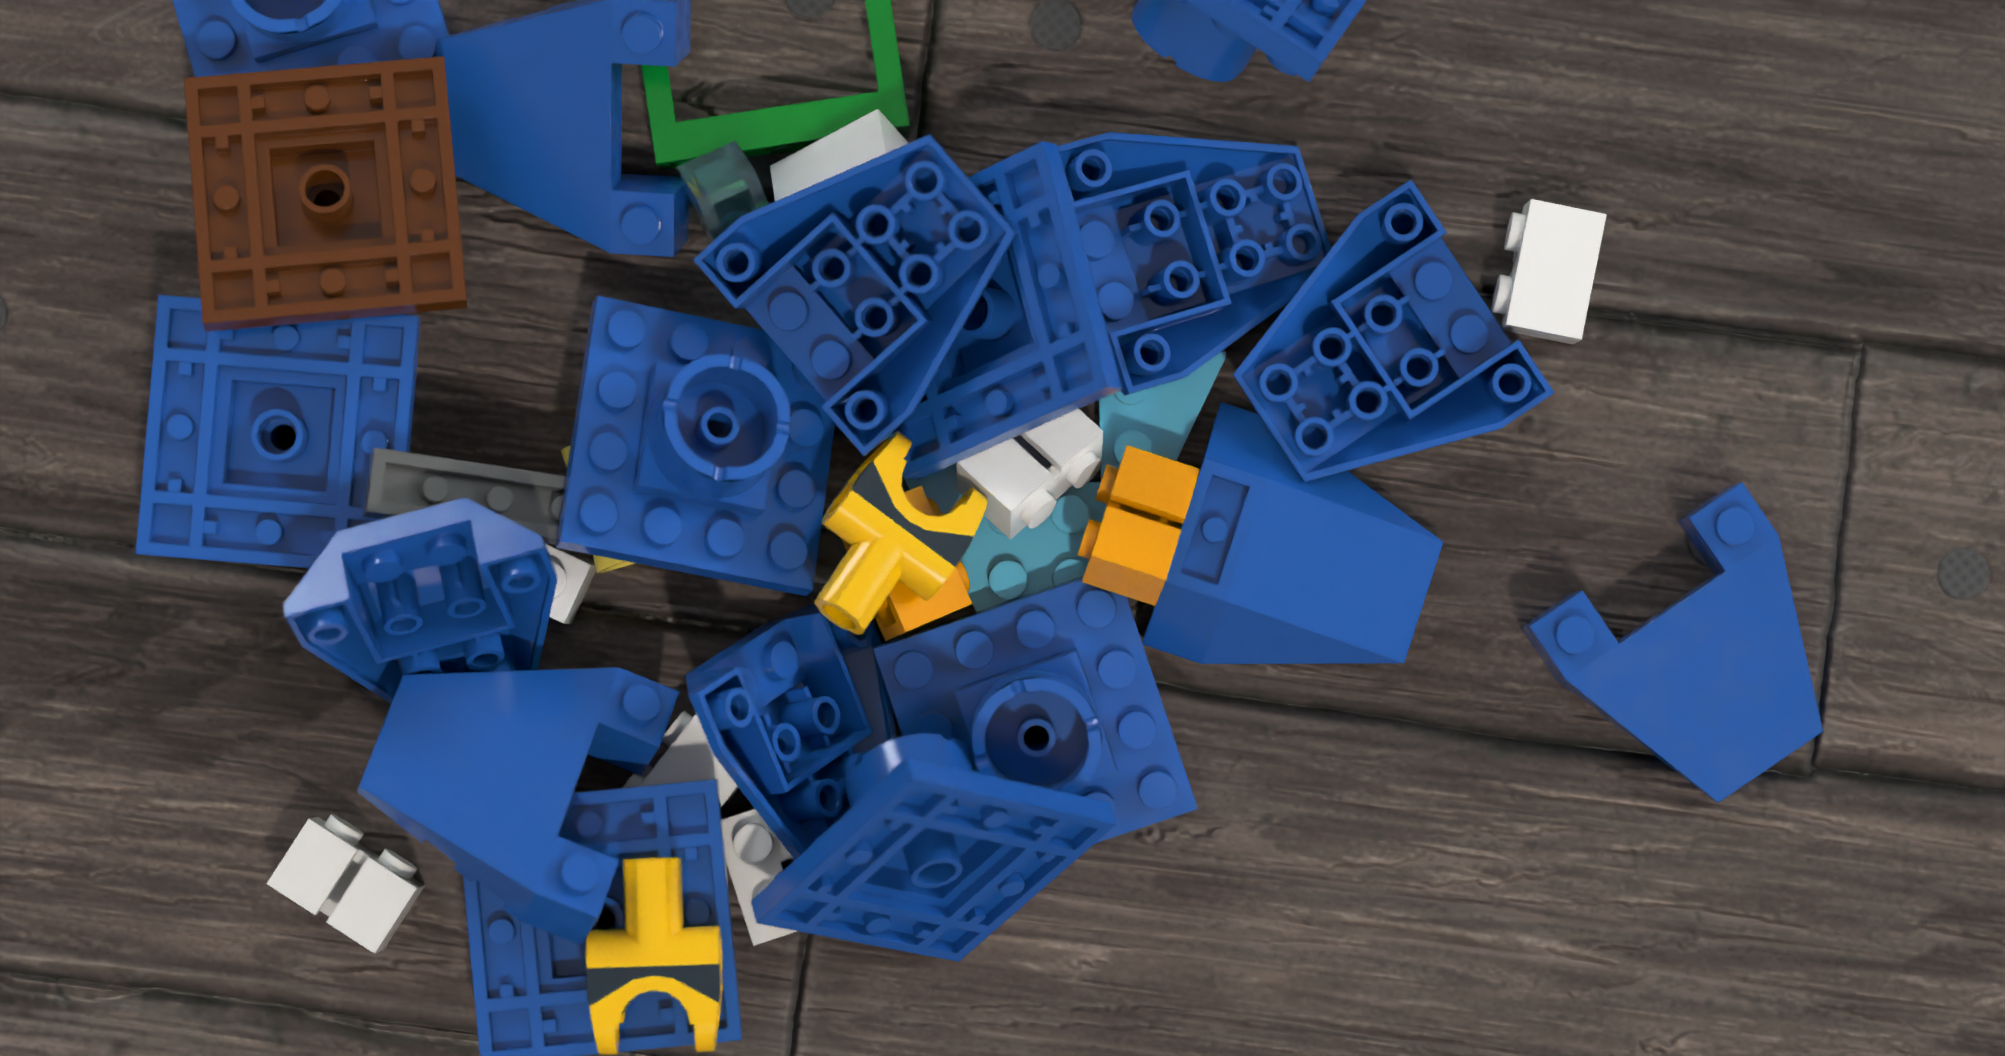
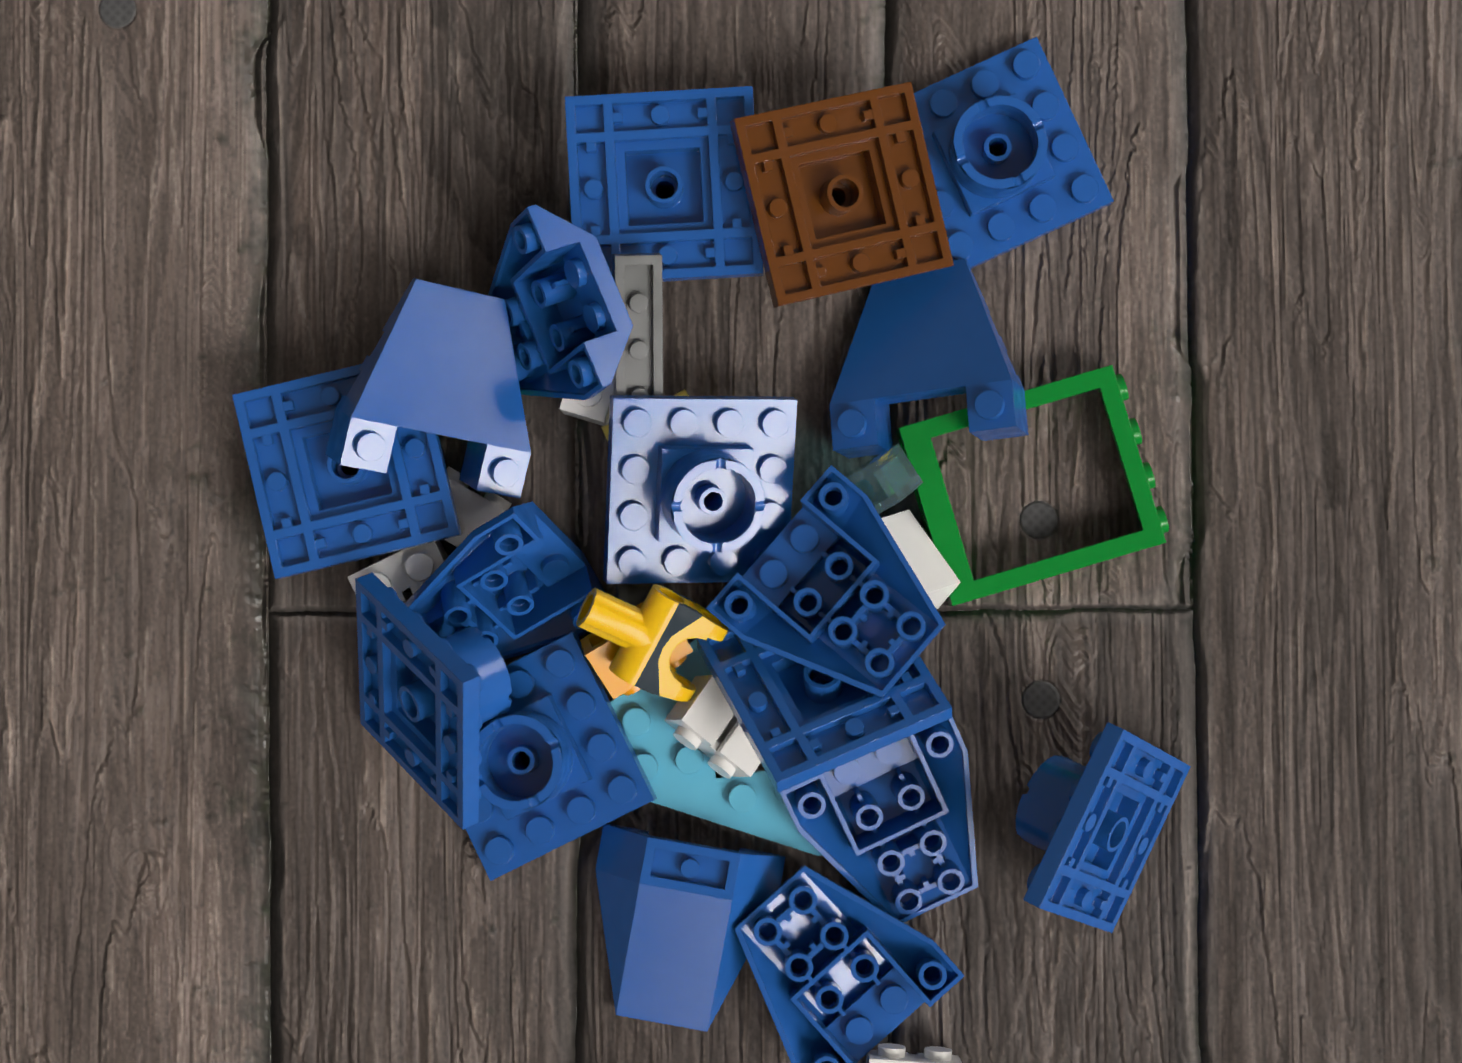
camera: 90 degrees right, 0 degrees up
(347, 881) = (359, 283): white piece -> none
(654, 955) = (323, 508): yellow connector -> none
(1139, 525) = (683, 812): light orange piece -> none

